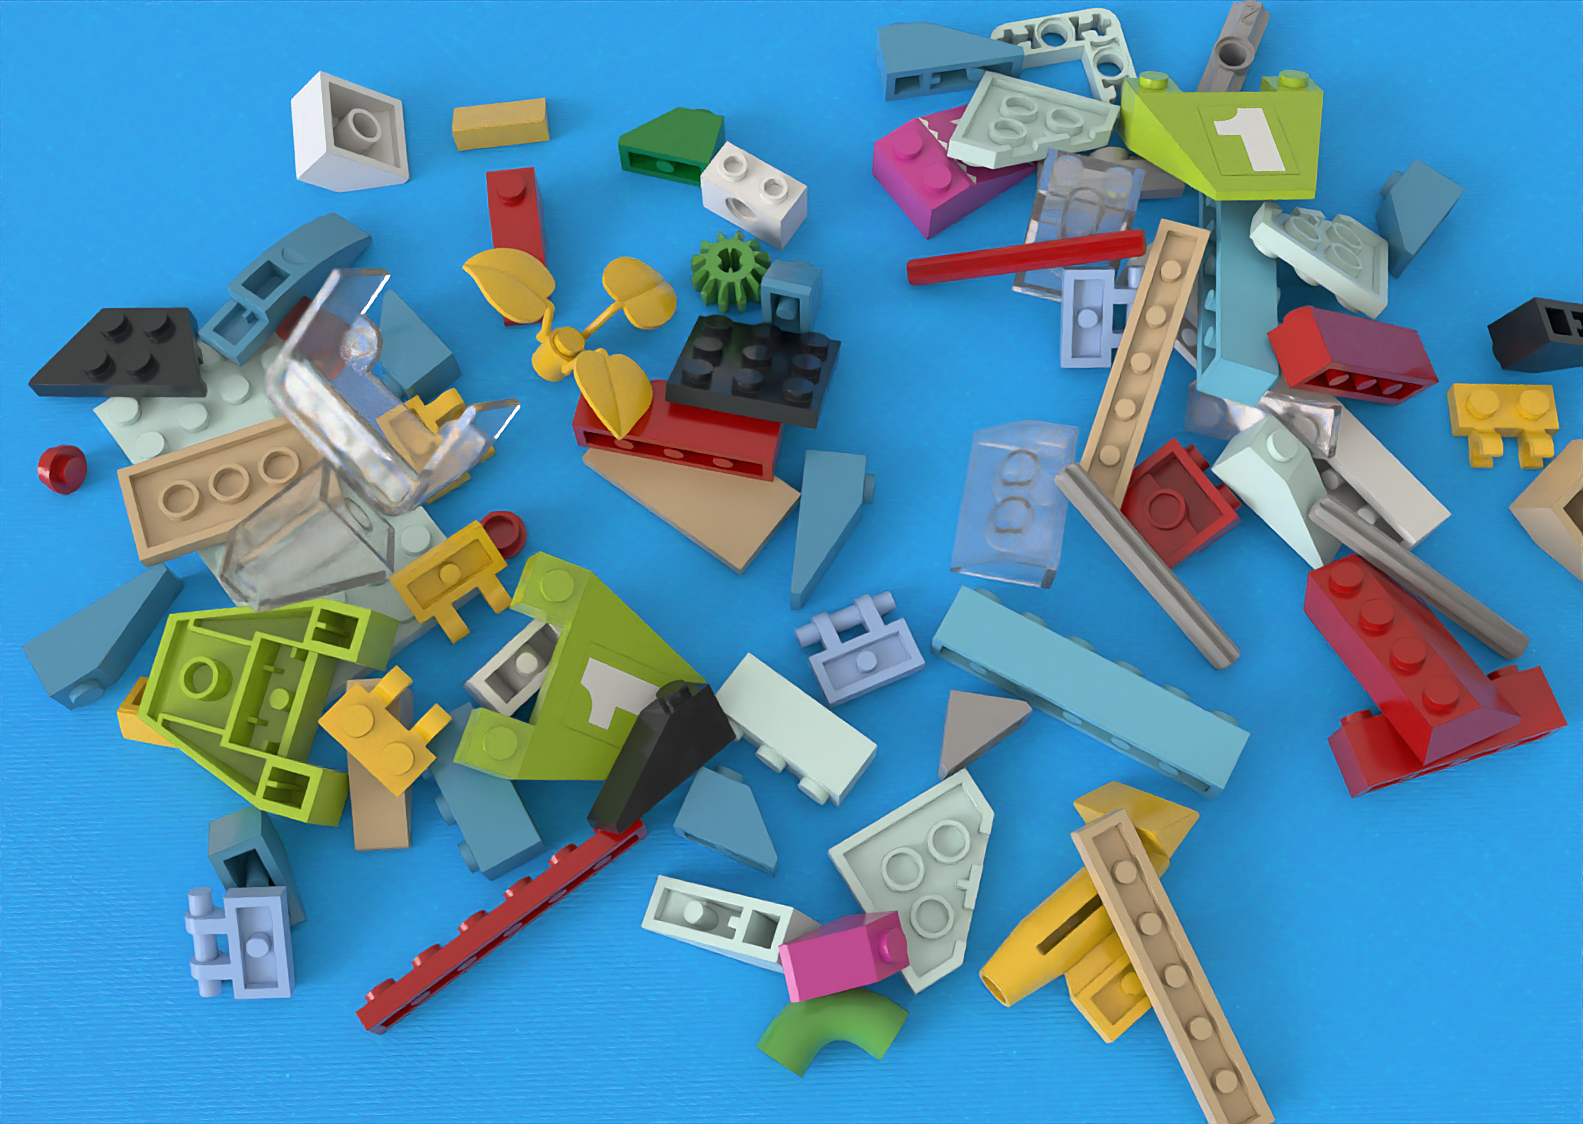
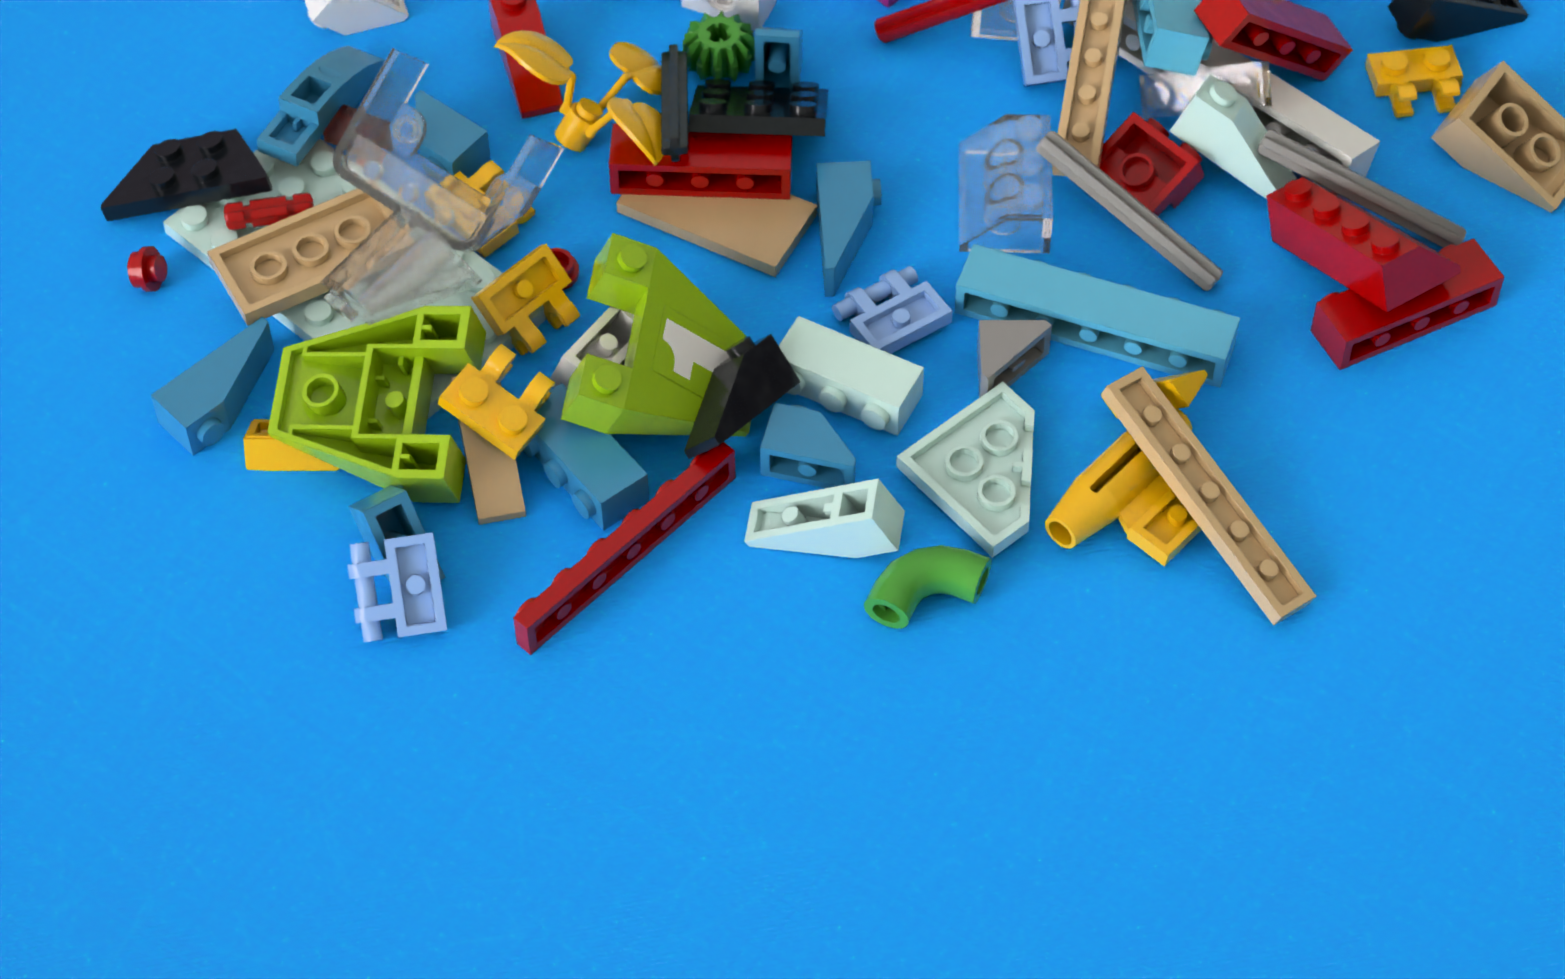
camera: 10 degrees left, 15 degrees down
(197, 421) = (265, 211): none -> red axle
(657, 360) = (674, 103): none -> black axle
(844, 955) = (929, 514): dark pink slope -> none

